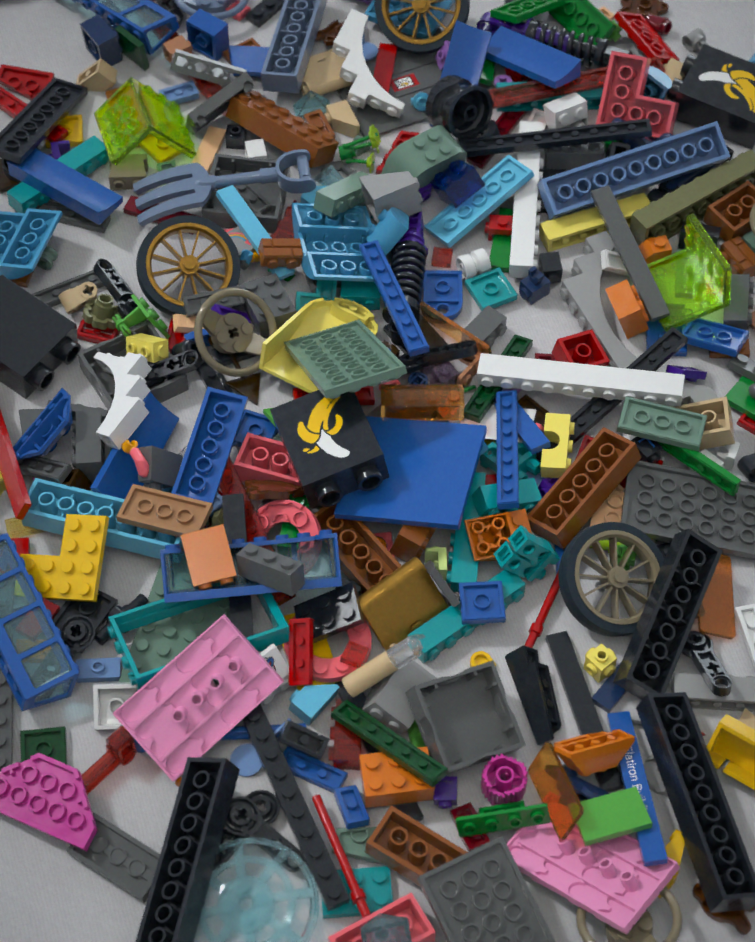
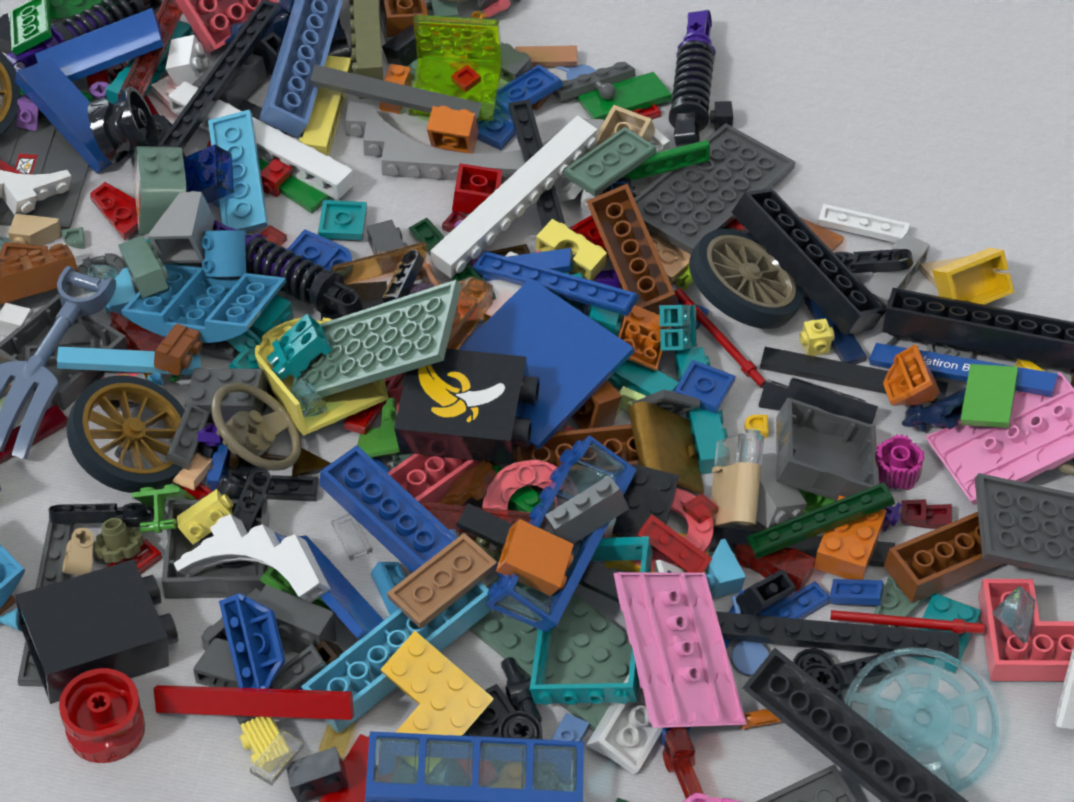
camera: 60 degrees left, 5 degrees down
(153, 464) = (369, 568): dark grey torso -> none
(282, 351) = (309, 399): none -> clear light blue tile
(329, 320) = (298, 348): none -> teal hips
(348, 150) = (81, 244): plant -> none
(394, 298) = (318, 280): blue tile -> none
(419, 101) = (66, 161): medium azure plate -> none
(473, 264) = (304, 215): white wheel -> none
(502, 818) = (935, 479): green bracket -> none
(534, 286) = (366, 185): dark blue brick -> none
(551, 266) = (359, 161): black brick -> none
(555, 790) = (941, 423): clear orange piece -> none
(612, 262) = (391, 113): white tile -> none
(686, 289) = (466, 78): none -> red plate
(691, 374) = (552, 127): dark purple plate -> none

